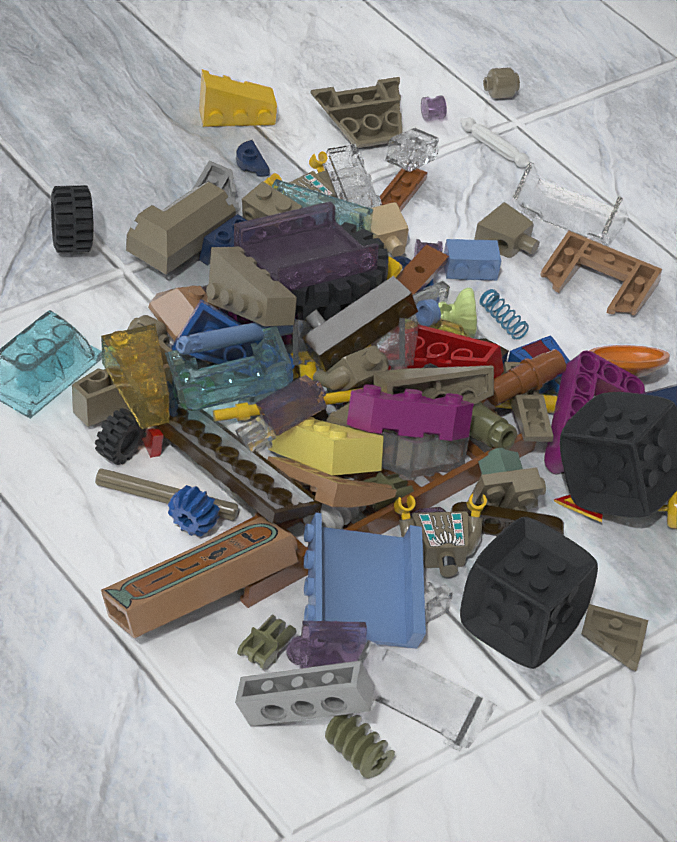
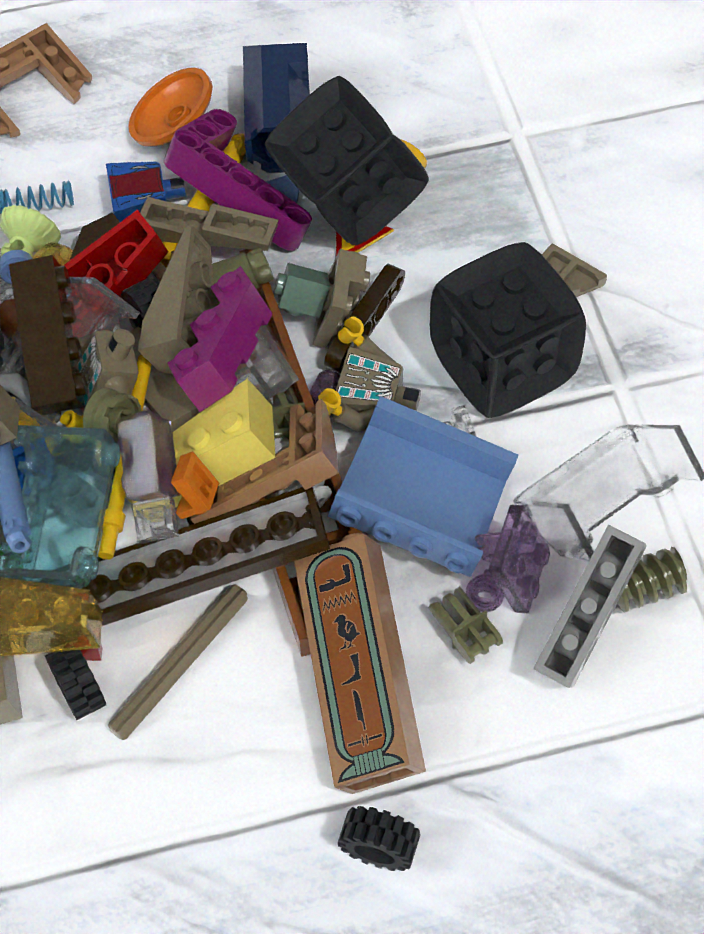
camera: 60 degrees left, 15 degrees up
(72, 623) = (379, 838): none -> black tyre
(193, 510) = (235, 635): blue gear -> none
(287, 439) = (195, 485): none -> orange bracket
(316, 365) = (108, 408): none -> olive wheel
(527, 376) = (179, 197): dark orange piece -> none

